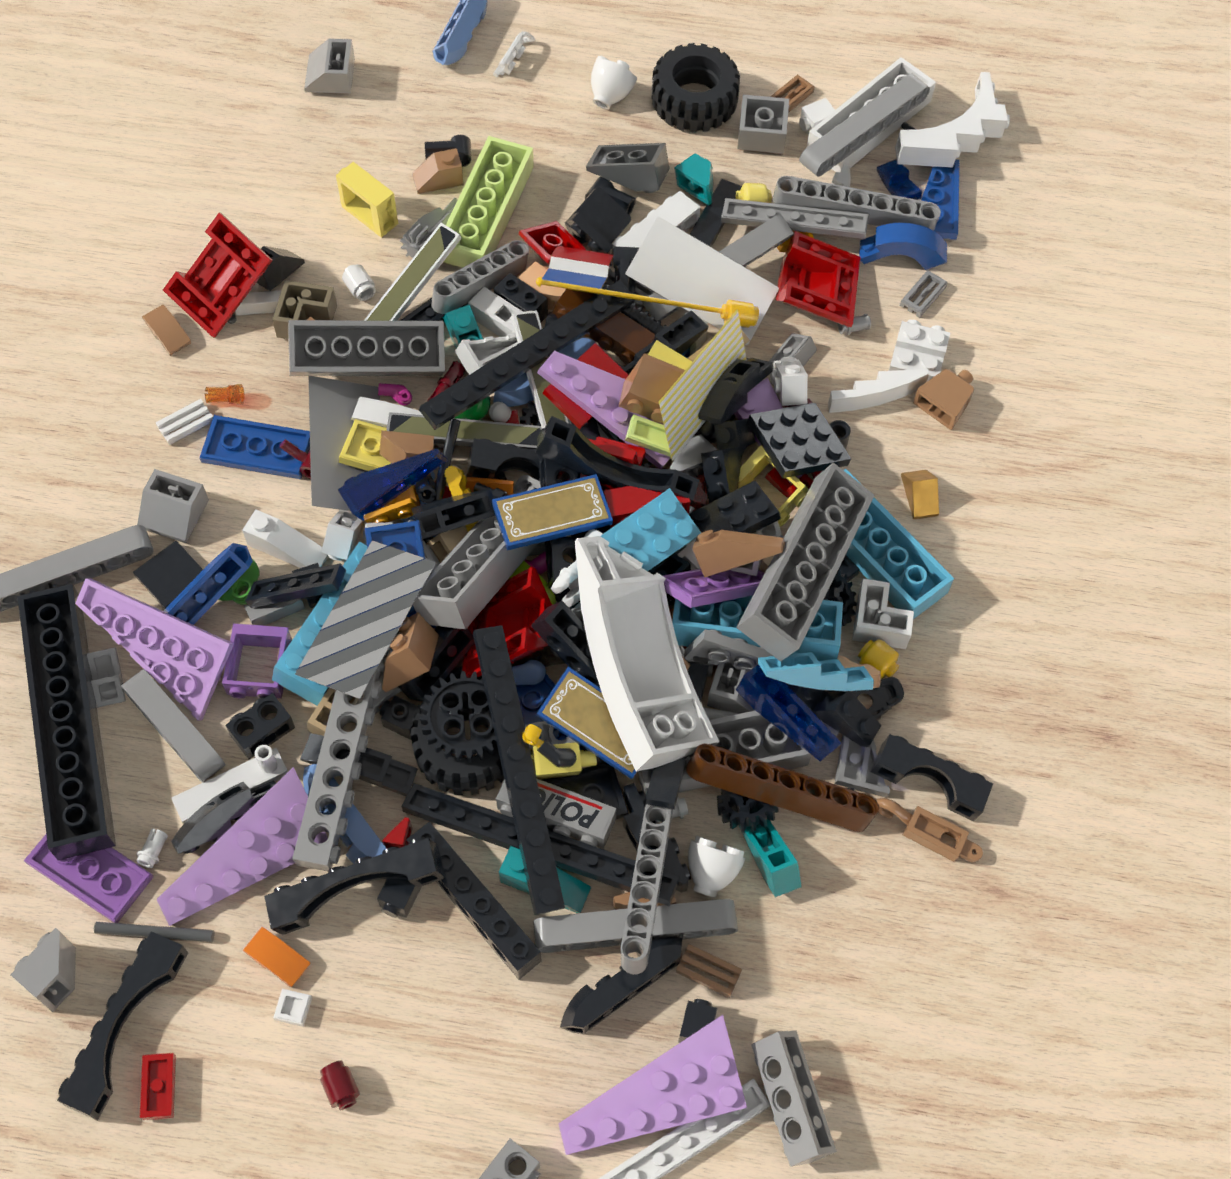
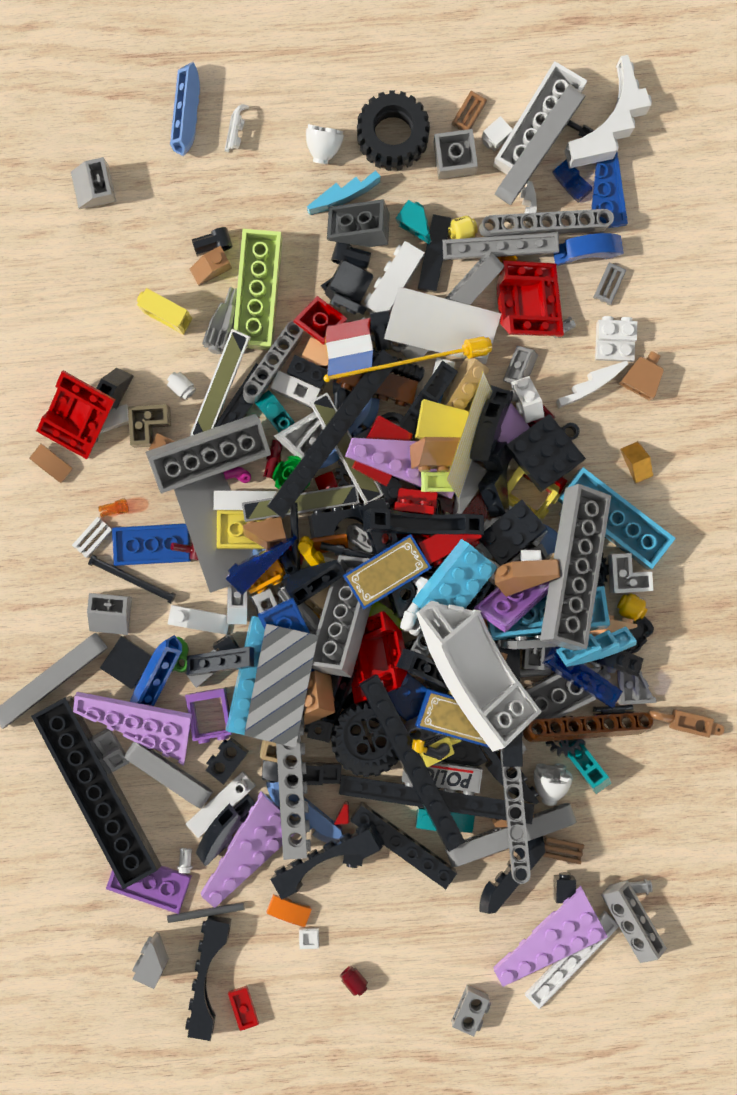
camera: 10 degrees left, 25 degrees up
(176, 447) = (132, 579): none -> black bar
(499, 412) = (321, 477): white hinge -> none
(612, 134) = (339, 196): none -> medium azure slope
(817, 1053) = (642, 886): none -> light grey pin
(964, 790) = (661, 683): black arch -> none

